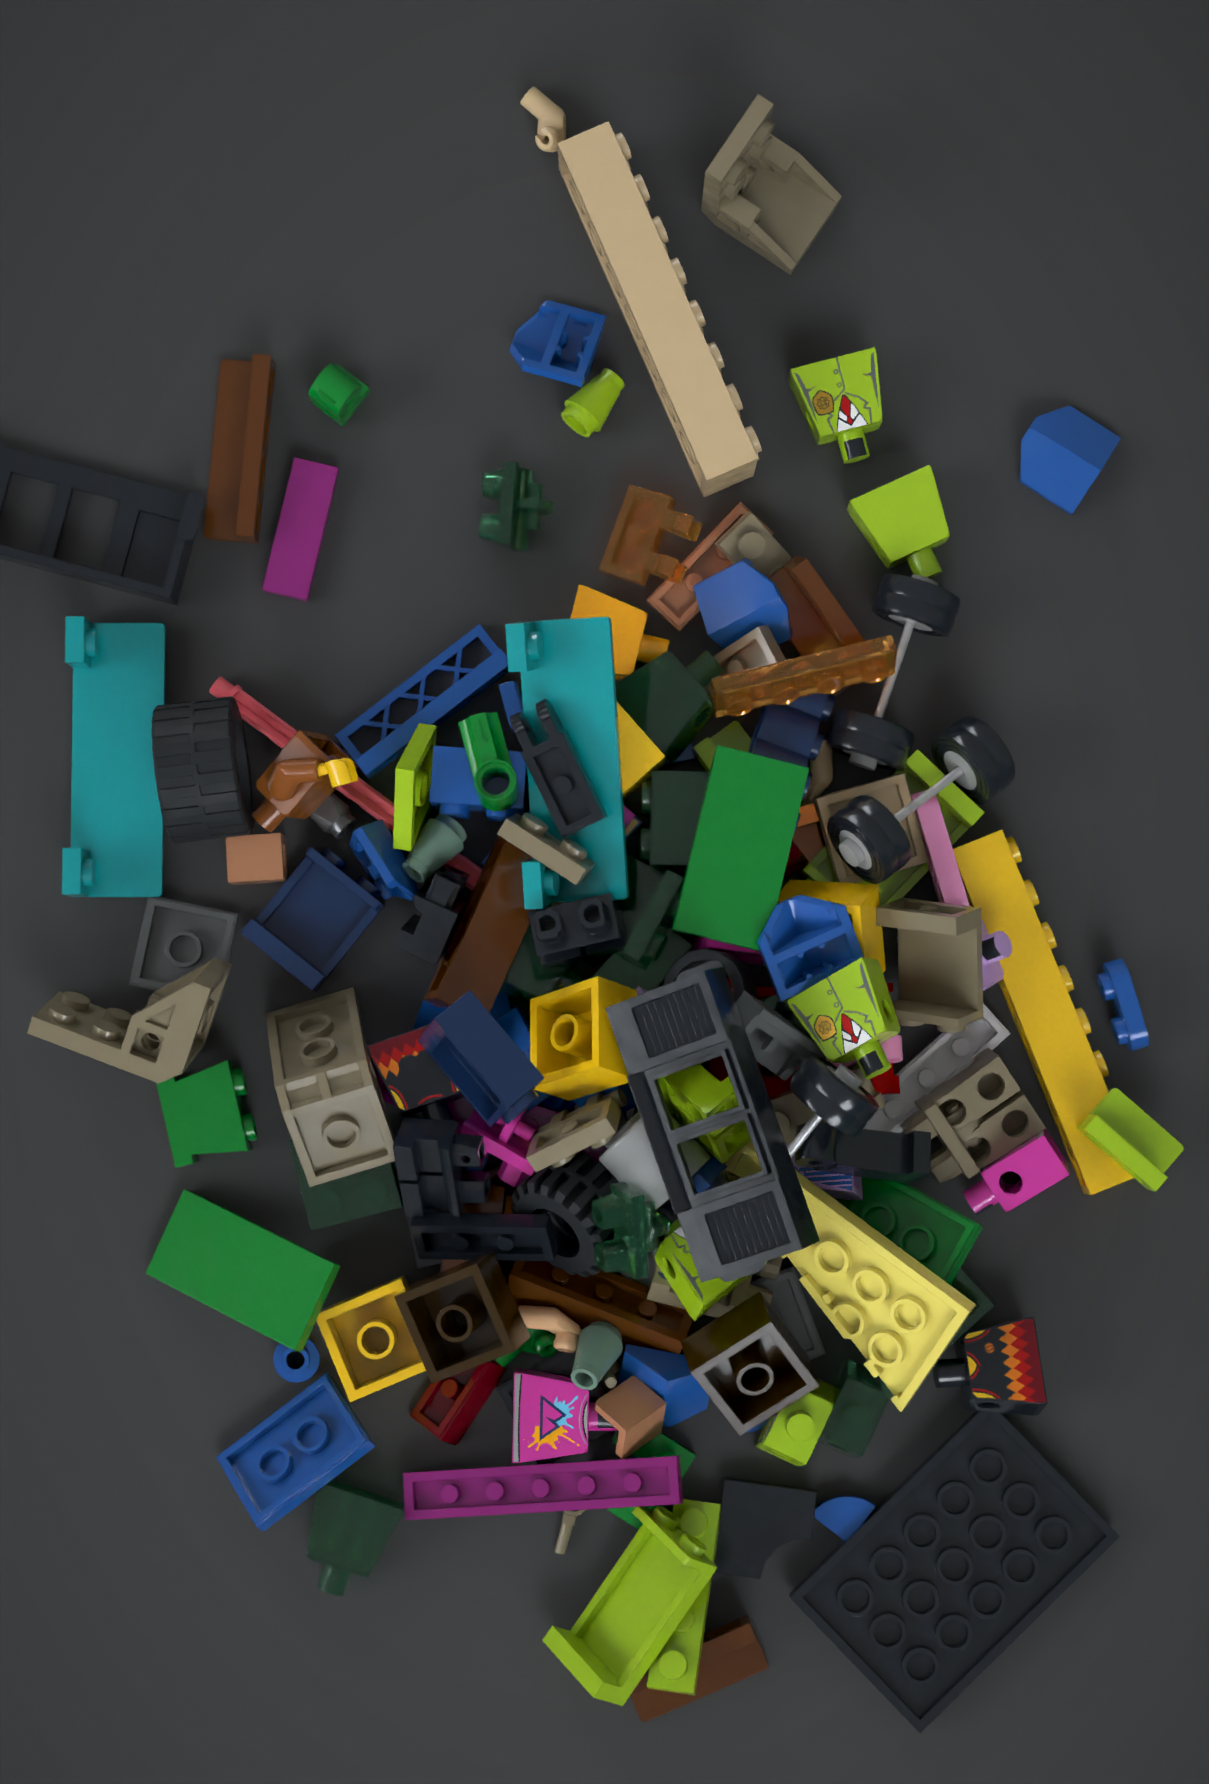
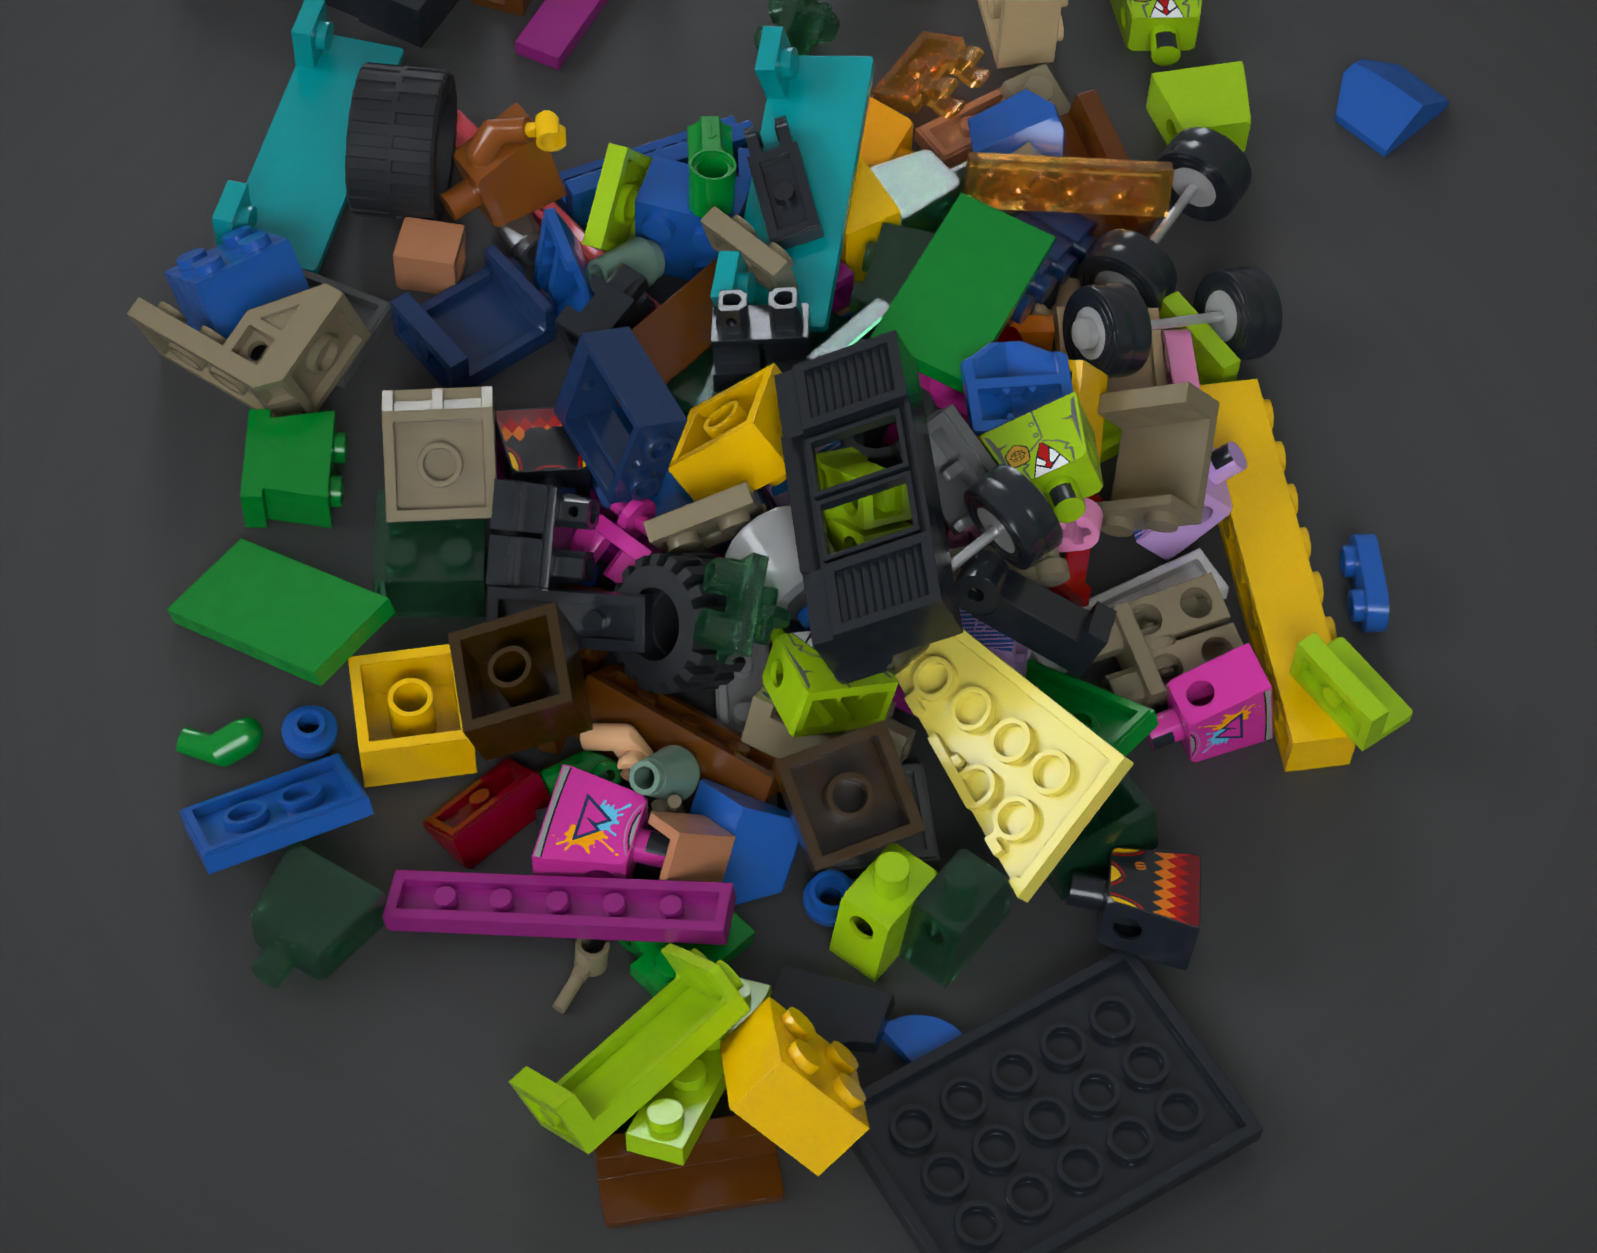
camera: 10 degrees right, 30 degrees down
(104, 951) = (239, 275): none -> blue brick
(233, 1388) = (223, 746): none -> green arm
(763, 1616) = (794, 1085): none -> yellow brick

